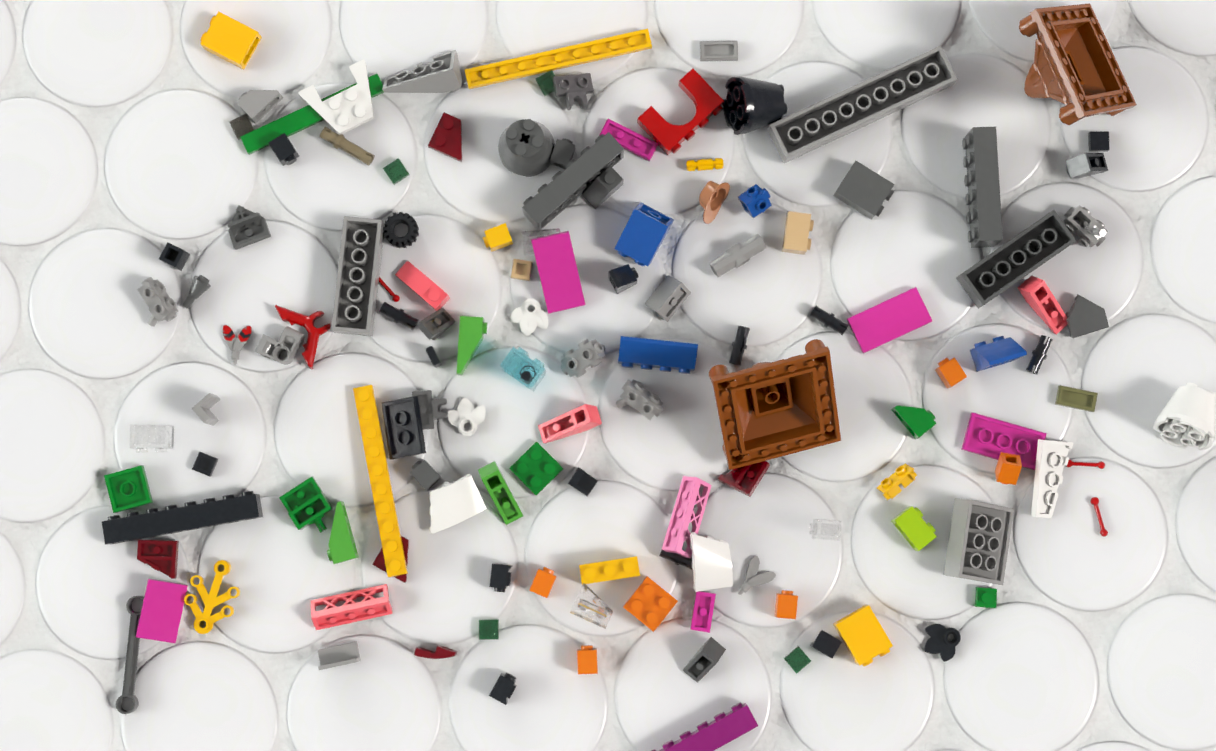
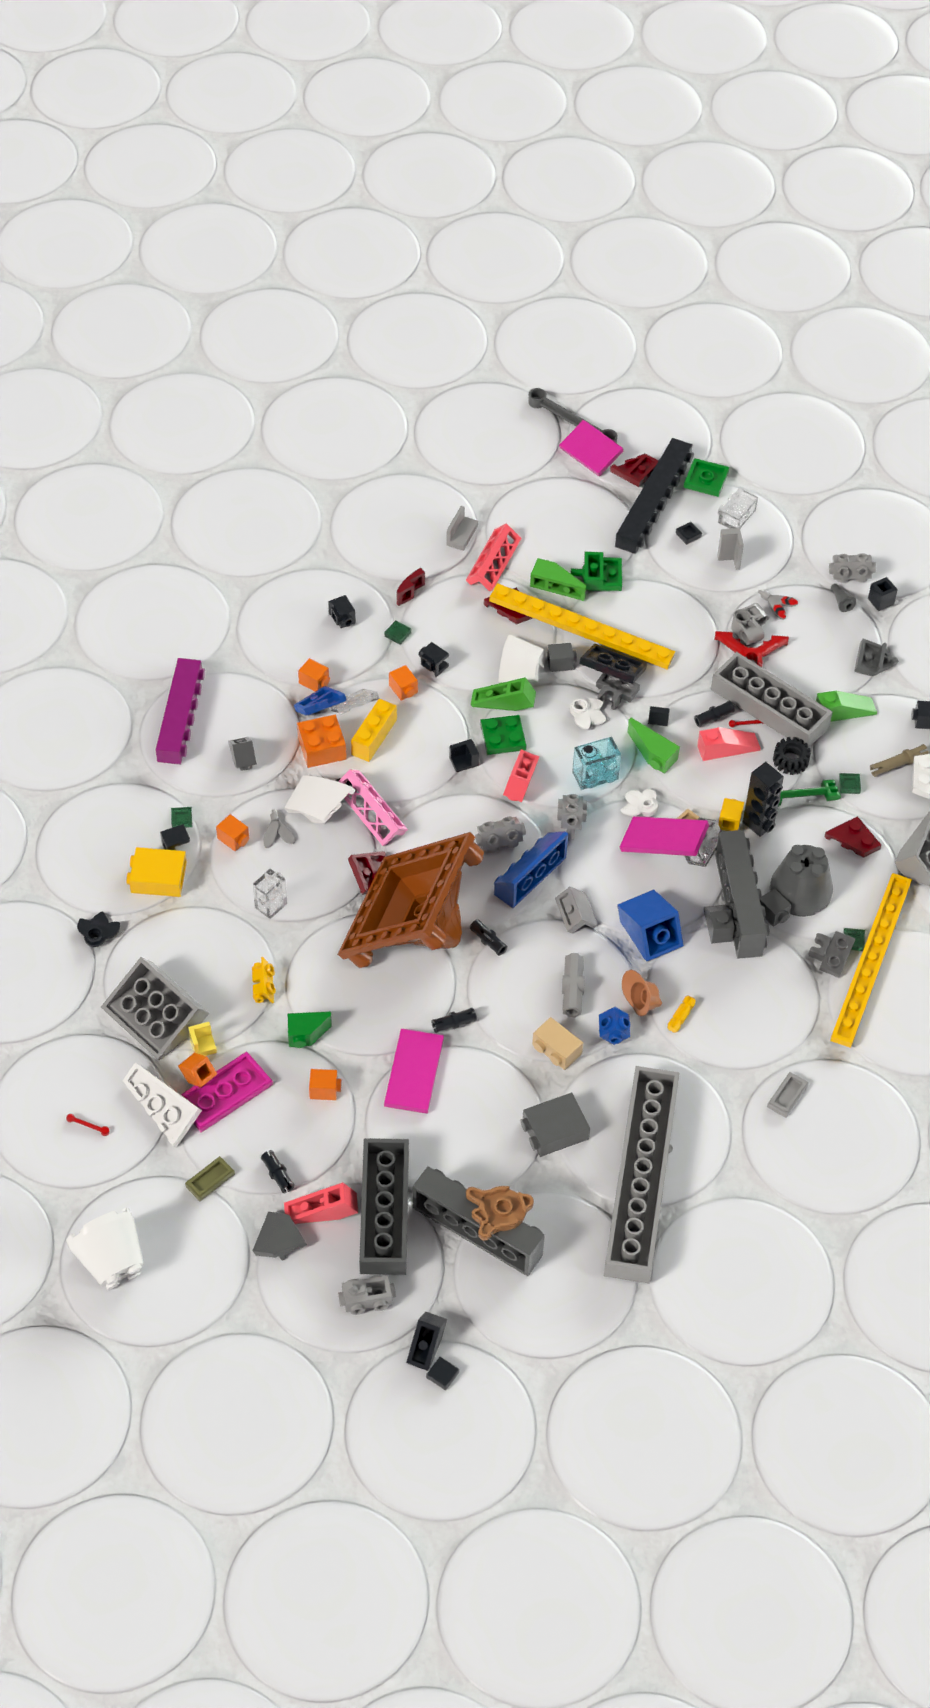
camera: 125 degrees right, 30 degrees down
(211, 600) = (562, 469): yellow plant -> none
(318, 218) = (846, 705): none -> bright green slope
(417, 185) = (827, 788): none -> green hinge
(436, 324) = (686, 730): dark grey slope -> none
(481, 209) = (763, 799): none -> black brick
(611, 635) = (319, 700): none -> blue wing
(623, 278) = (621, 878): black slope -> none
(630, 140) = (751, 970): dark pink tile -> none
(671, 136) = (742, 1047): red arch -> none
(703, 611) = (281, 774): dark pink plate -> none
(752, 104) = (710, 1074): black cone -> none
(914, 528) = (211, 966): lime brick -> none
(979, 167) = (498, 1209): none -> medium nougat tile
(979, 486) = (202, 1039): none -> light yellow panel
(986, 597) = (102, 986): green plate -> none
(996, 353) = (309, 1122): blue slope -> none
(1074, 63) = (536, 1369): dark orange piece -> none
(1101, 465) = (156, 1133): red hinge -> none

